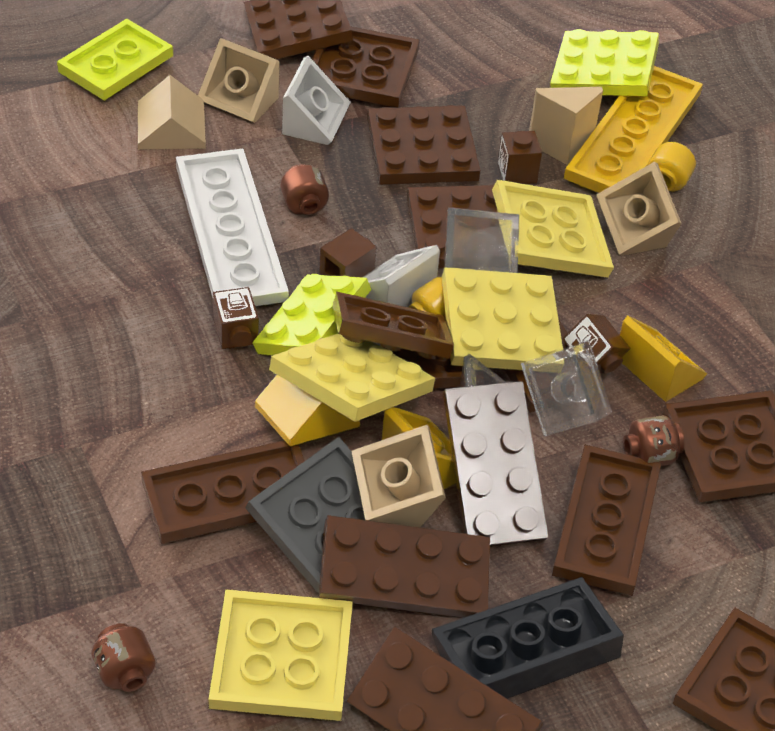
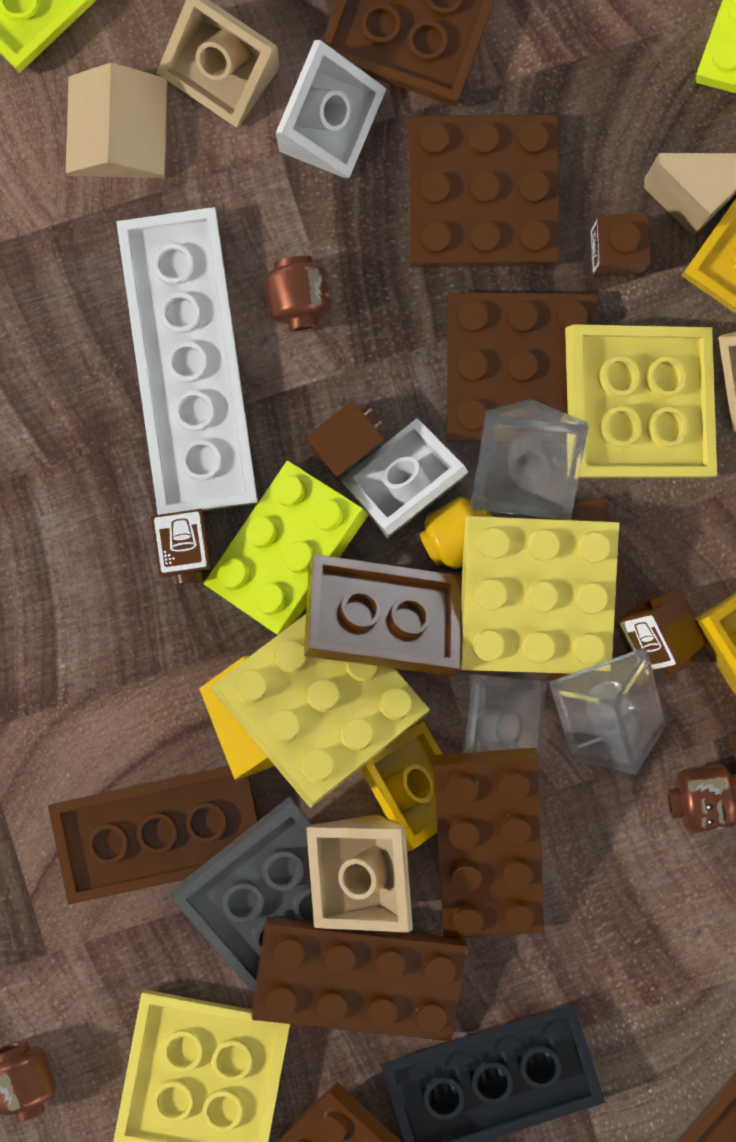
camera: 10 degrees right, 40 degrees up
(607, 520) = (623, 910): reddish brown plate -> none

